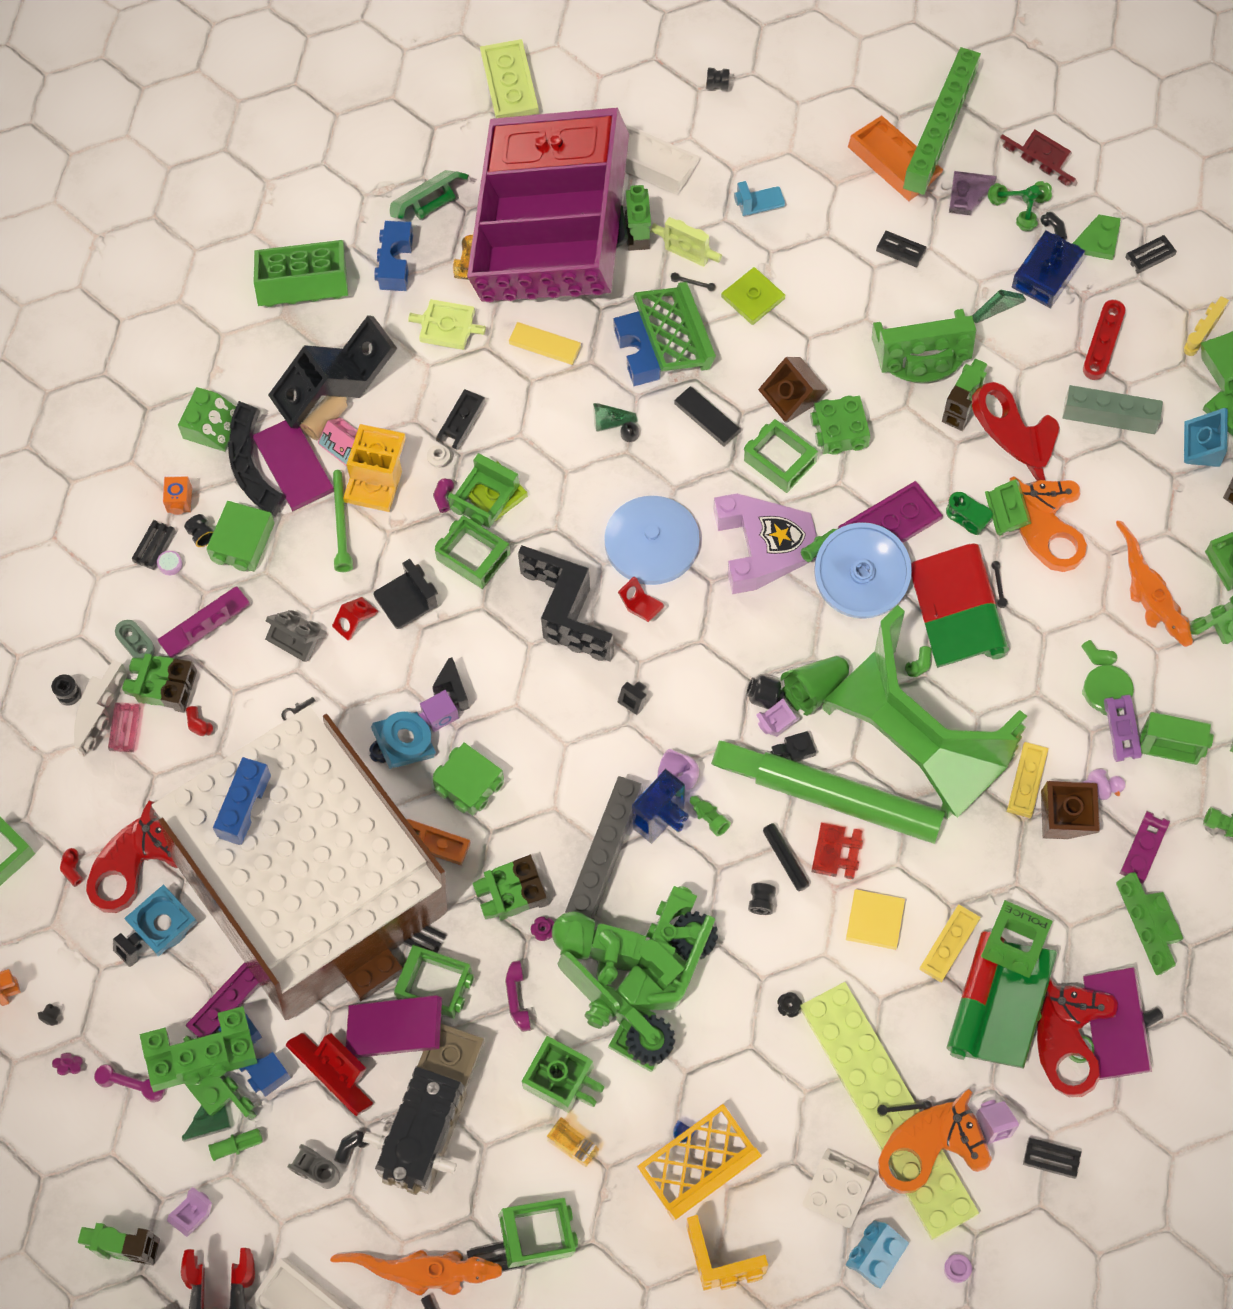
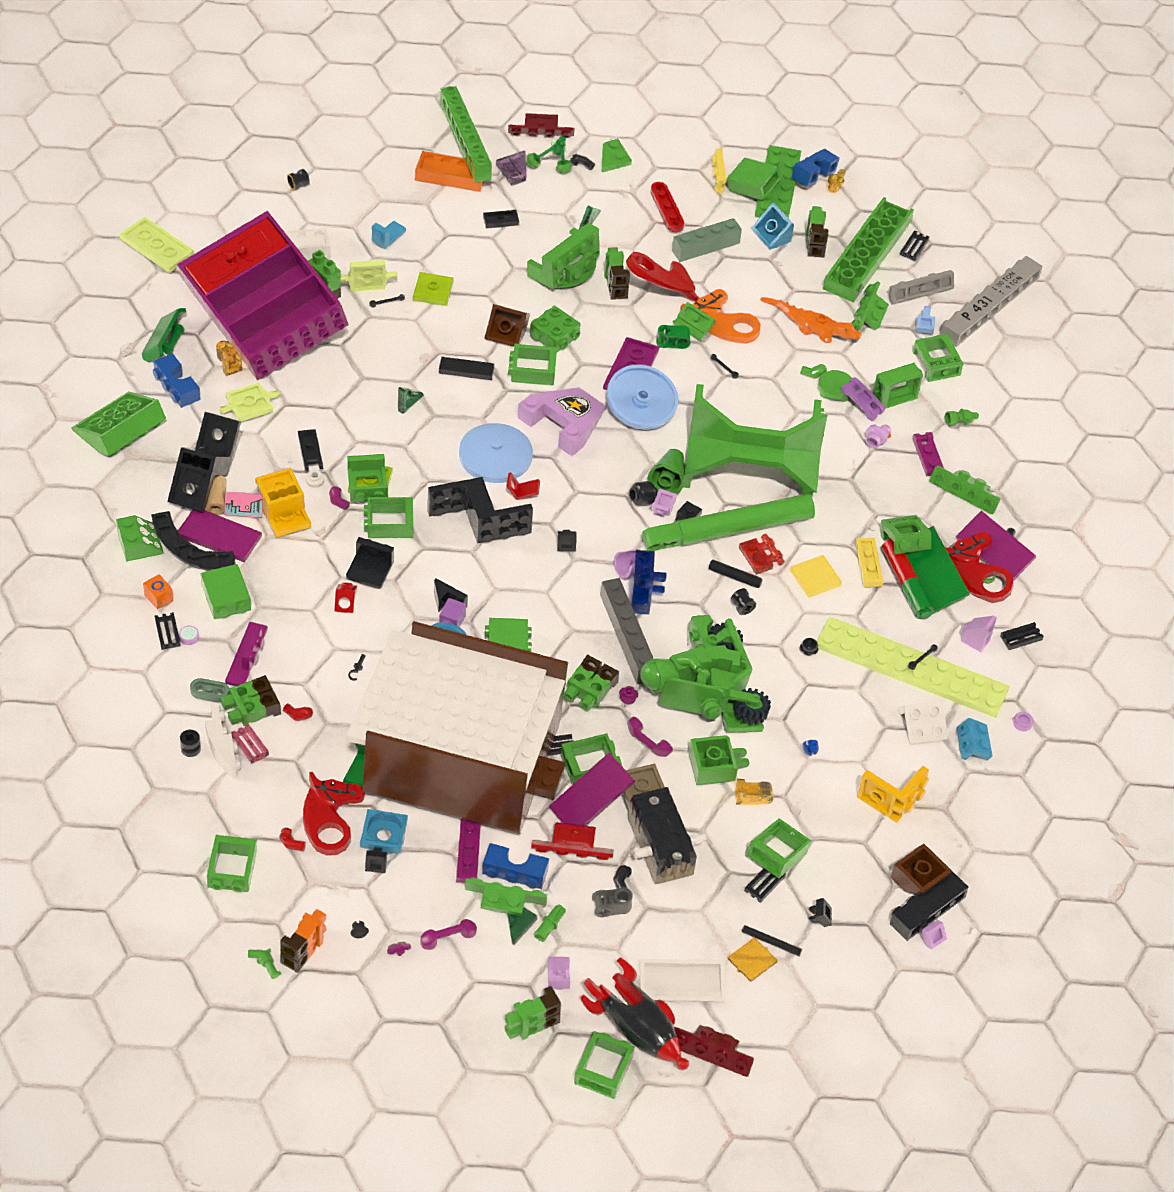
camera: 45 degrees left, 15 degrees down
(199, 529) = (194, 603): black wheel -> none
(199, 1057) = (489, 879): bright green bracket -> none
(247, 785) = (405, 686): blue arch -> none
(294, 634) = (317, 627): dark grey bracket -> none
(343, 561) = (308, 569): bright green piece -> none
(424, 1272) = (731, 913): orange animal -> none
(544, 343) = (323, 381): light yellow tile -> none
(625, 434) = (425, 402): black hinge -> none
(631, 333) = (378, 344): blue arch -> none
(691, 326) = (404, 318): bright green fence -> none
(717, 823) = (680, 578): bright green piece -> none
(717, 1176) = (853, 759): yellow fence -> none
(810, 552) = (601, 404): bright green axle -> none
(943, 1126) = (949, 661): orange animal -> none
(958, 606) = (721, 386): door -> none
(1027, 780) = (835, 459): light yellow tile -> none
(1048, 269) = (601, 185): clear blue piece -> none
(1069, 809) = (873, 454): reddish brown slope -> none
(1147, 260) = (648, 157): black tile -> none

